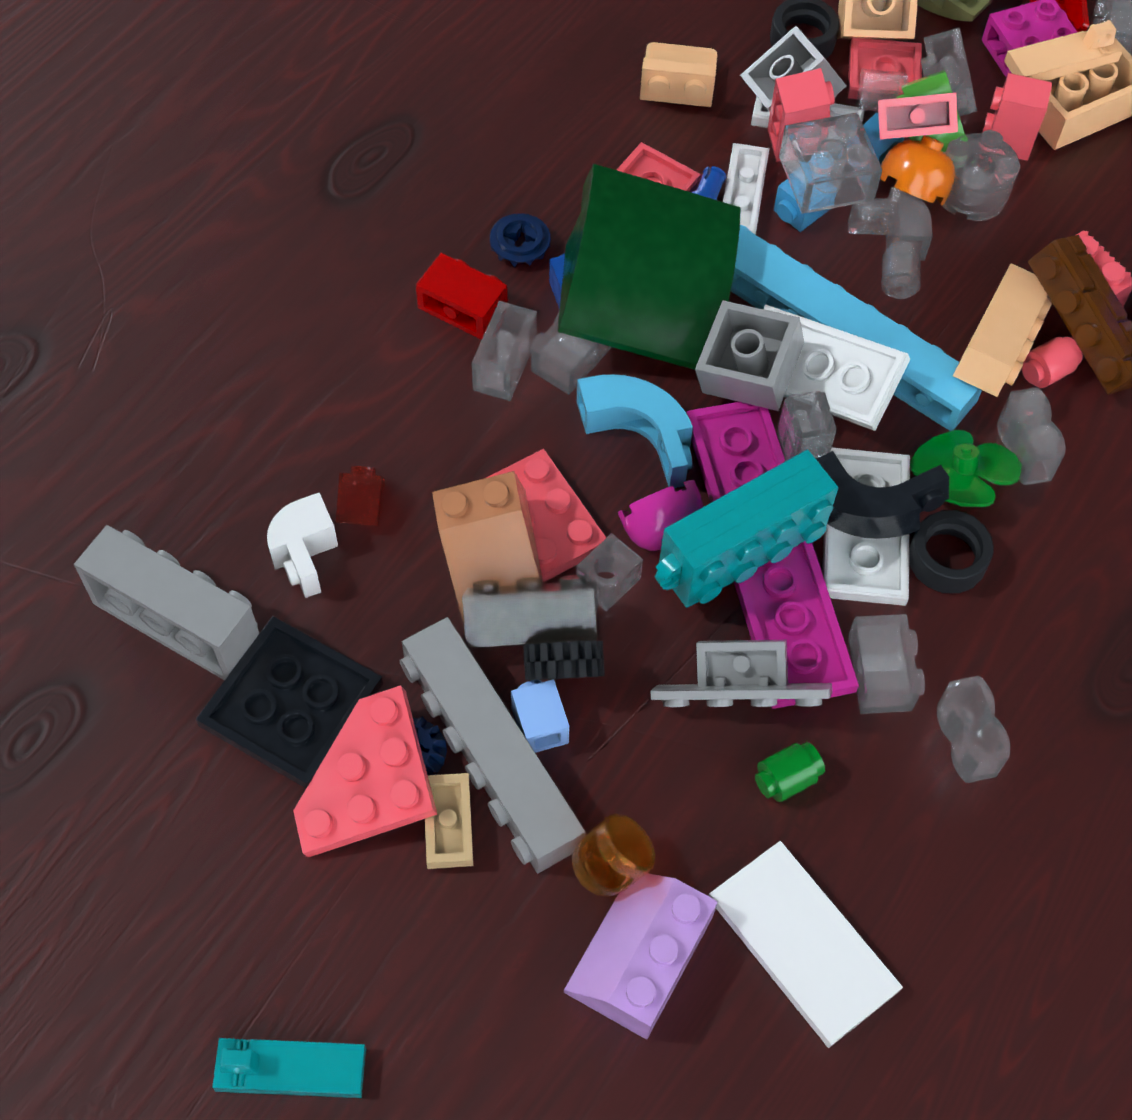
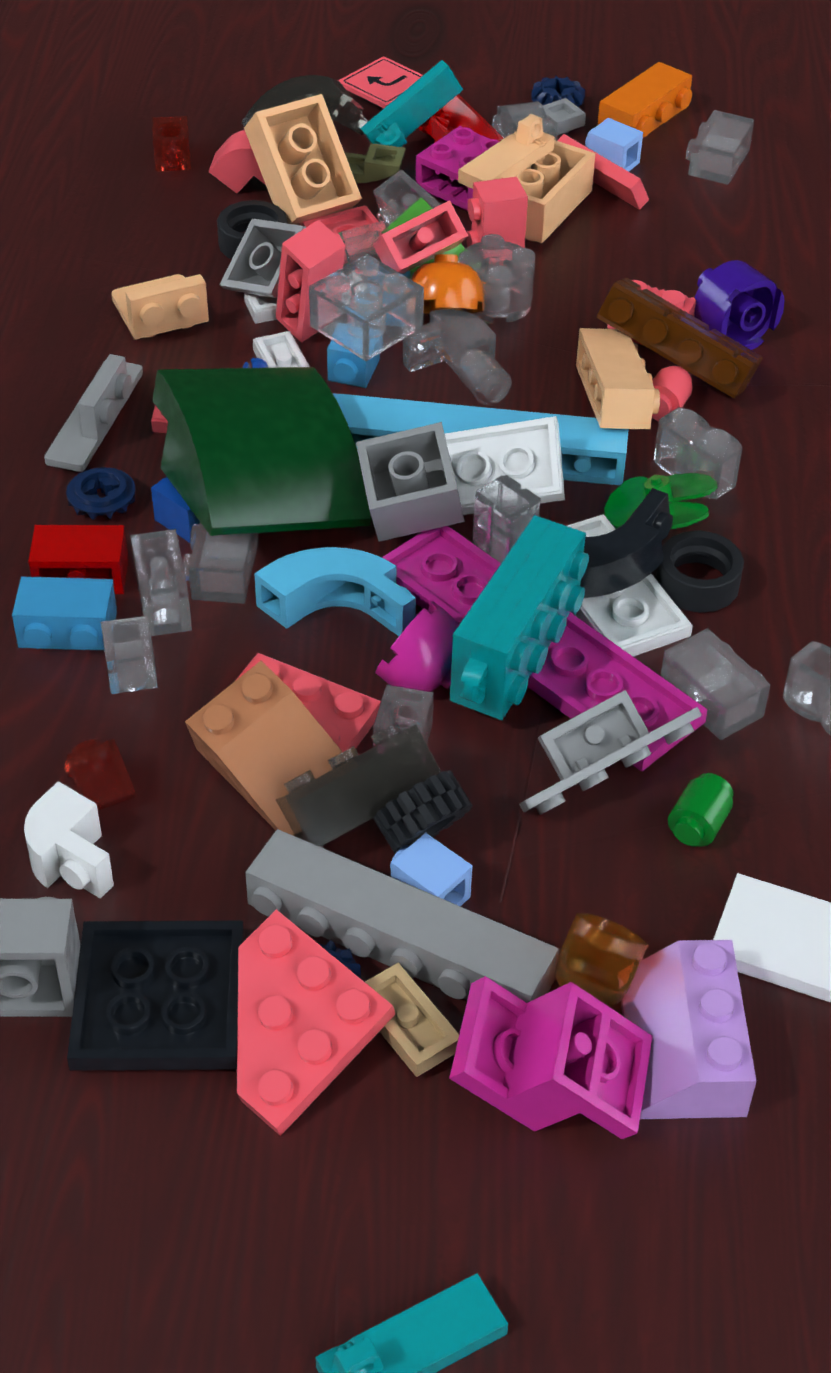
camera: 30 degrees left, 15 degrees down
(421, 341) = (63, 612): none -> dark azure brick
(445, 402) = (129, 654): none -> clear brick
(520, 917) = (552, 1057): none -> dark pink bracket
(560, 160) = (94, 414): none -> light grey bracket

